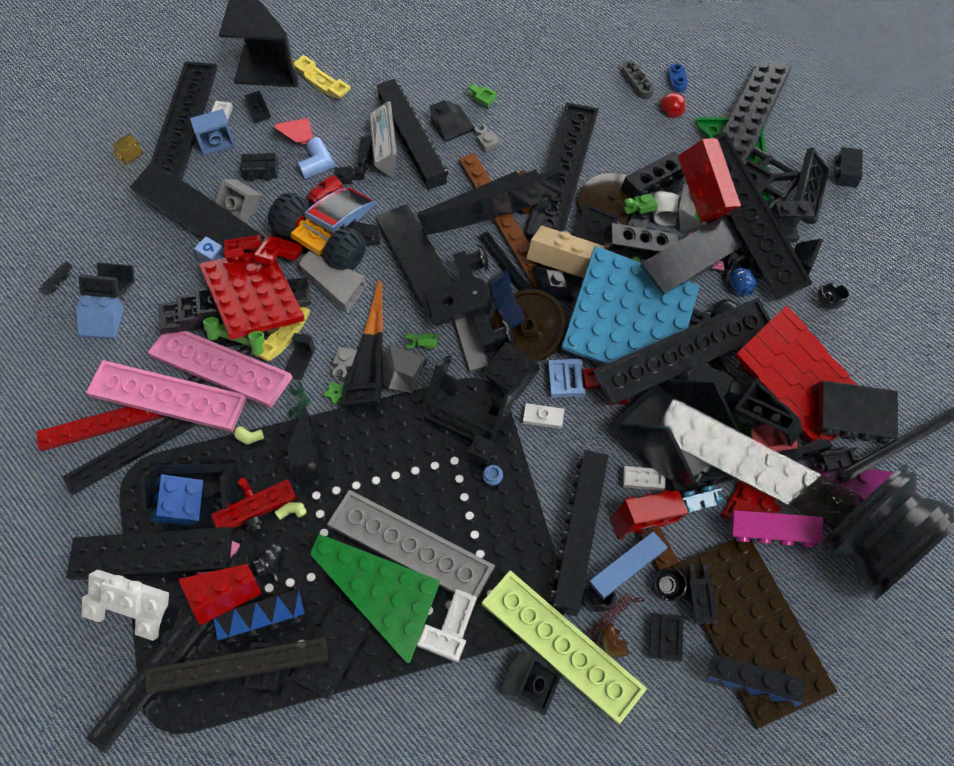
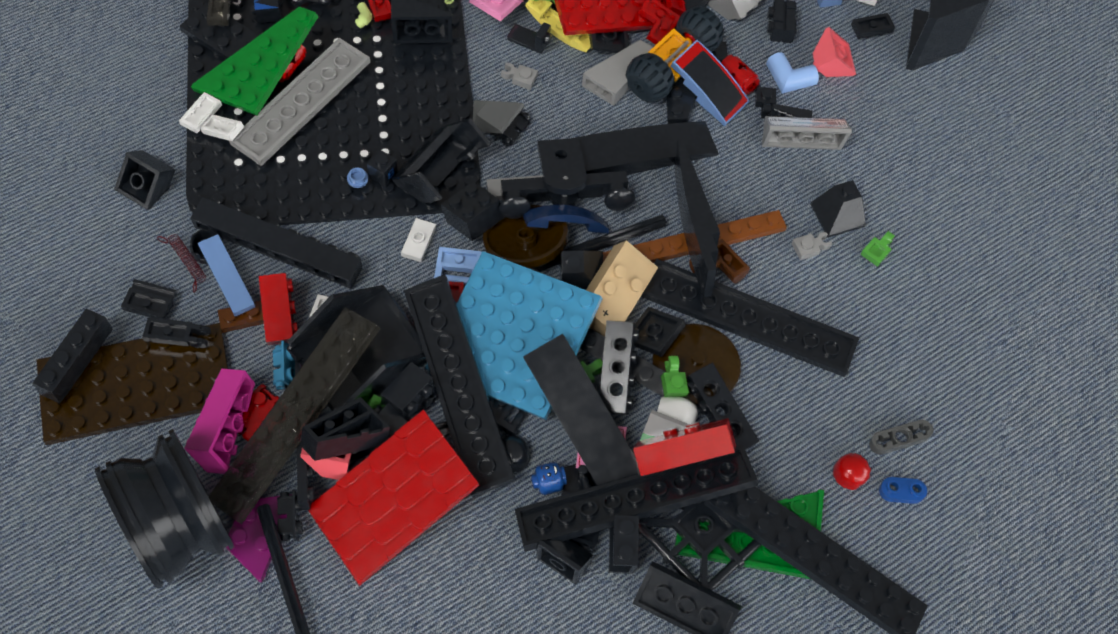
camera: 90 degrees right, 0 degrees up
(305, 400) = (482, 40): clear green arm -> none
(320, 80) = (914, 87): light yellow slope -> none
(330, 393) = (485, 70): bright green plate -> none
(366, 375) = (495, 86): black plate -> none
(412, 135) = (820, 165): black brick -> none
(424, 339) = (529, 143): bright green plate -> none
(564, 647) = (165, 208): yellowish green plate -> none
(611, 644) = (156, 251): reddish brown hair -> none
(670, 584) = (199, 311): black hair -> none
(833, 296) = (511, 582): black hair -> none
(857, 412) = (337, 547): black panel -> none

